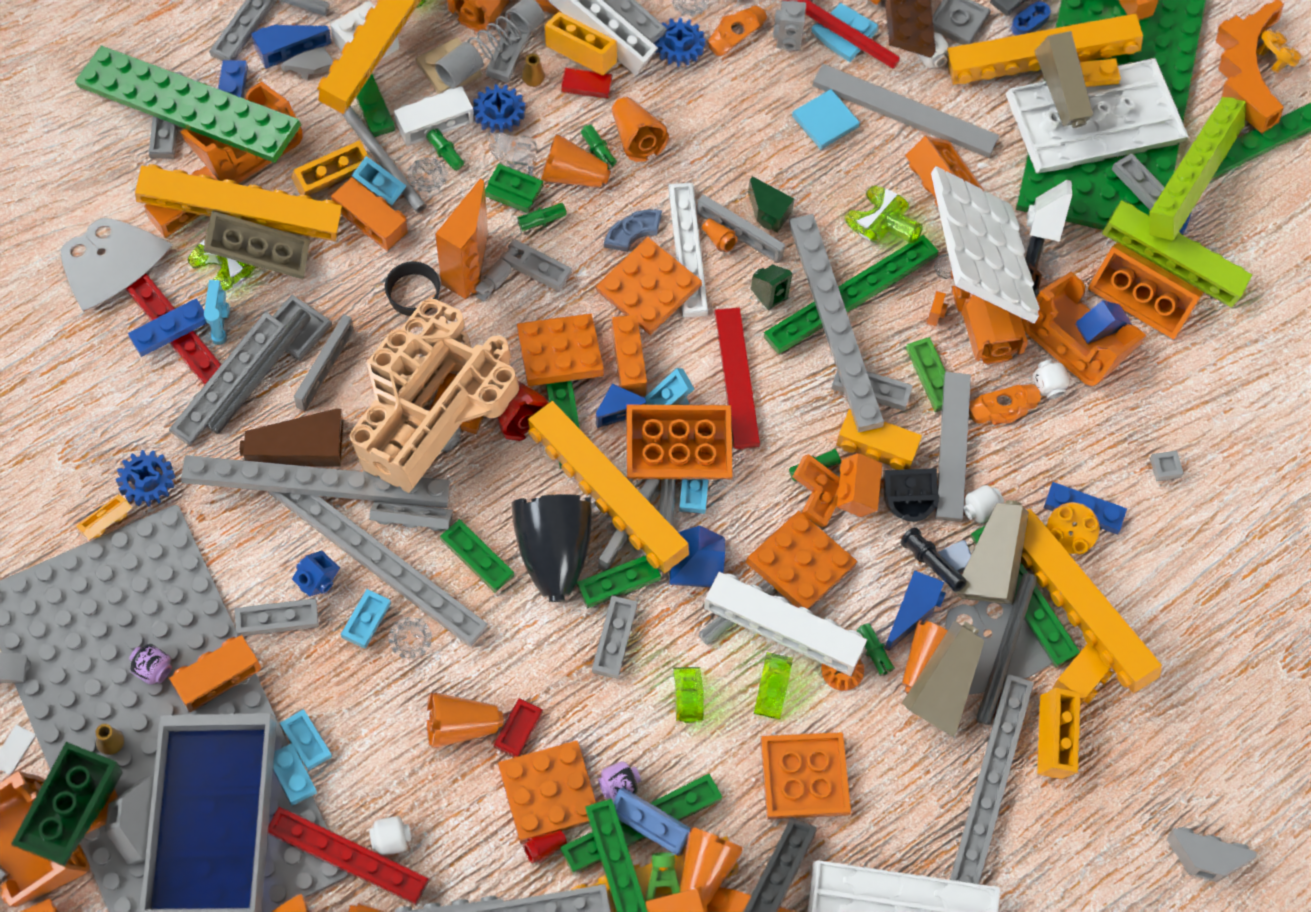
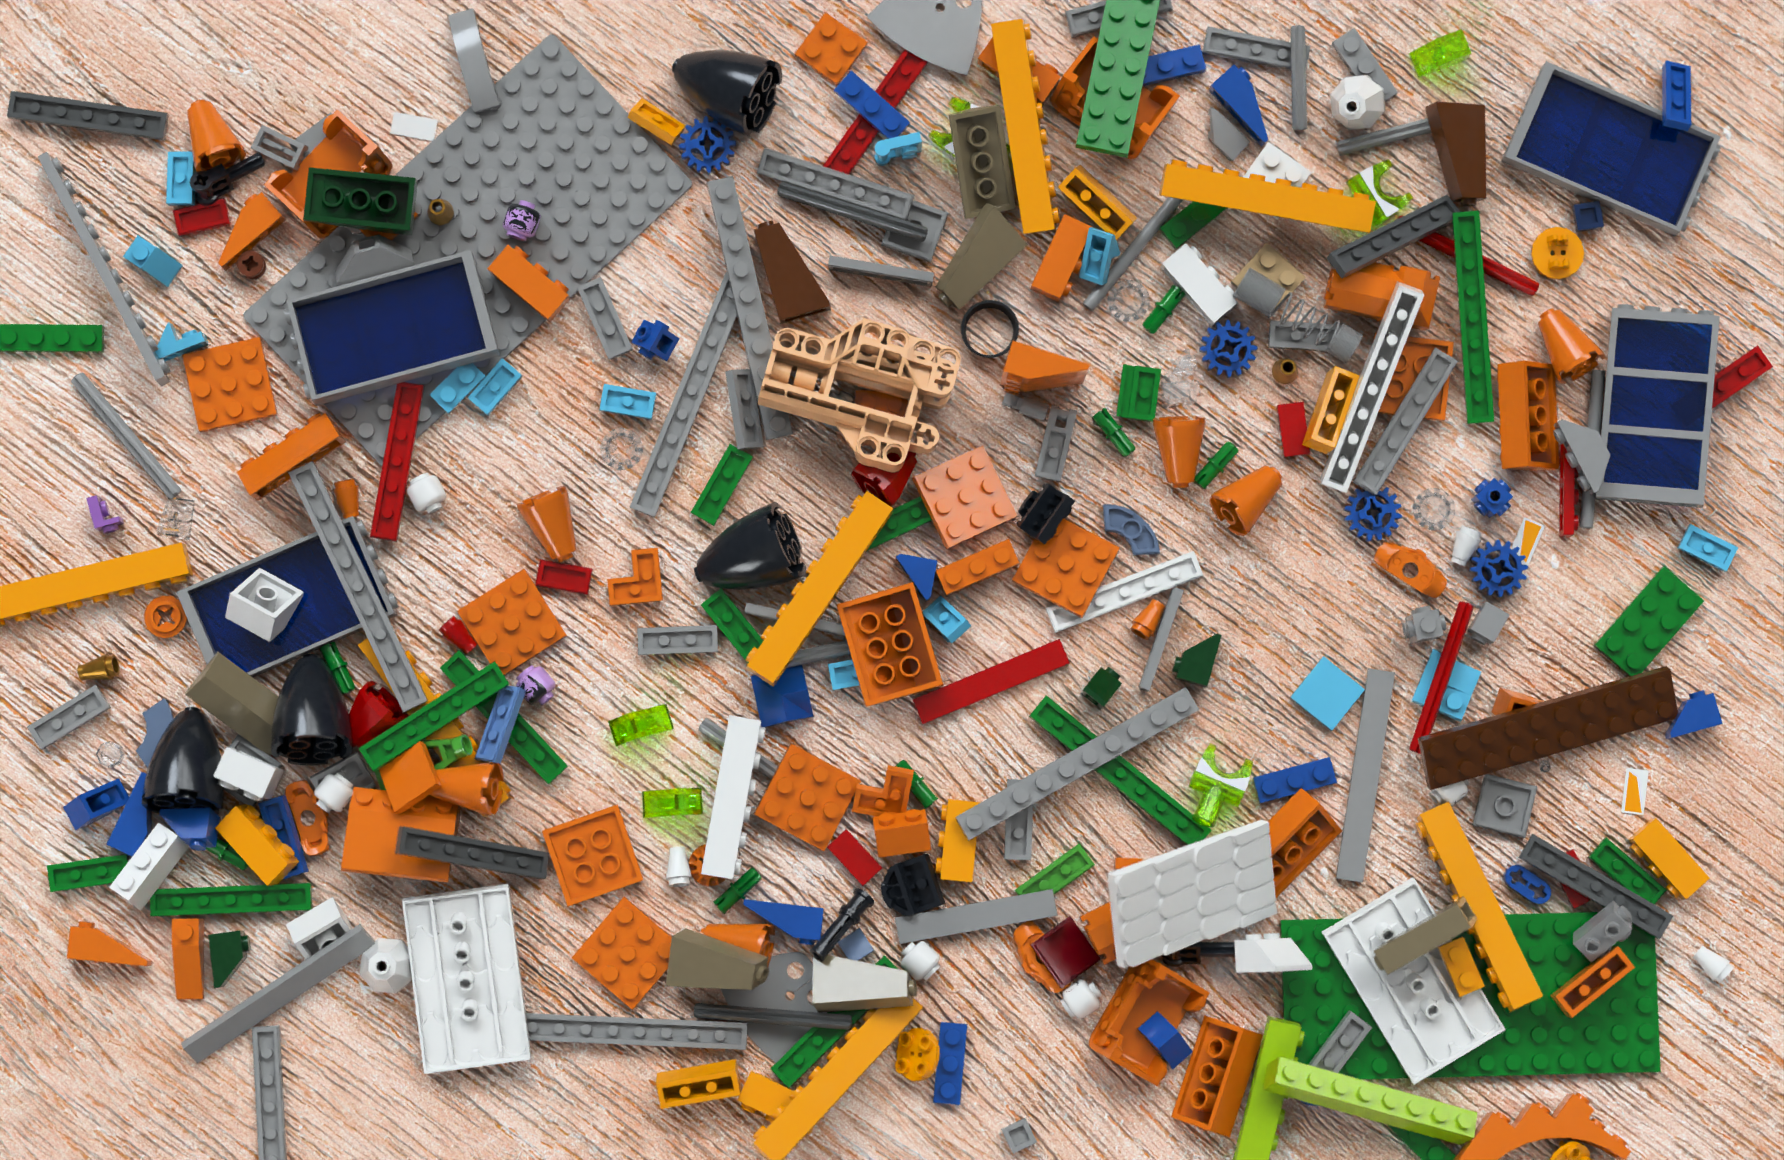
camera: 75 degrees right, 20 degrees up
(95, 440) = (730, 86): none -> black cylinder
(99, 351) = (831, 48): none -> orange plate
(343, 274) = (980, 257): none -> dark tan slope
(550, 652) = (643, 586): none -> orange plate
(596, 285) = (1044, 512): none -> black slope
(841, 697) = (678, 868): none -> white cone
(870, 537) = (854, 857): none -> red tile
(895, 162) = (1290, 780): none -> blue plate
(910, 770) = (626, 953): none -> orange plate
(1005, 381) = (1065, 952): none -> dark red piece

